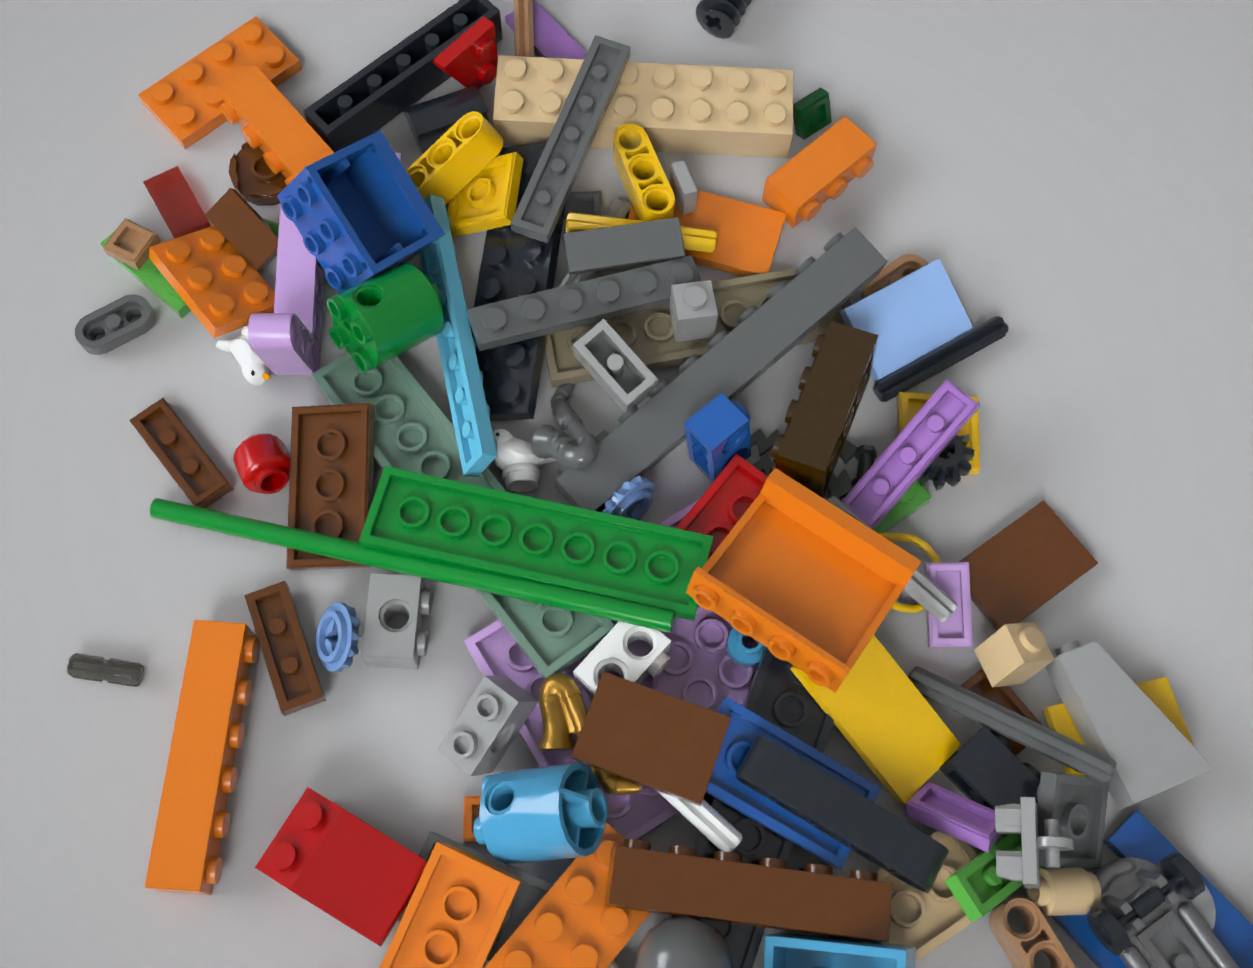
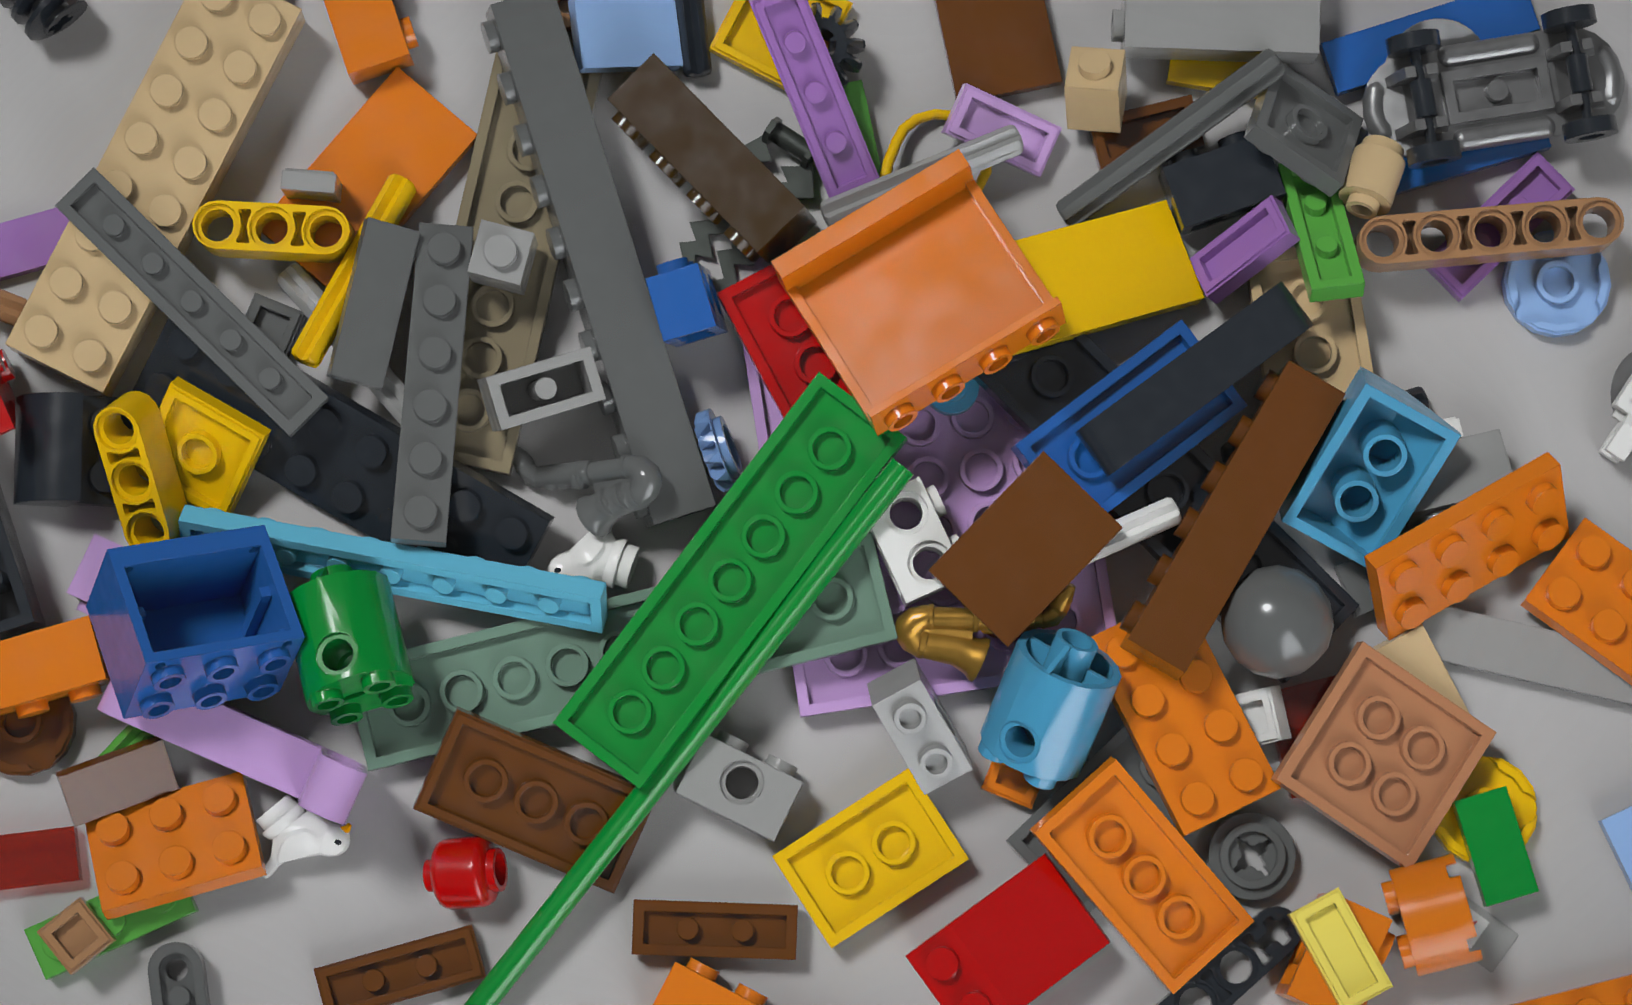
camera: 65 degrees left, 15 degrees up
(337, 637) = (746, 876): medium blue gear -> none
(377, 736) = (870, 858): none -> yellow plate
(1024, 864) = (1333, 208): light grey hips -> none

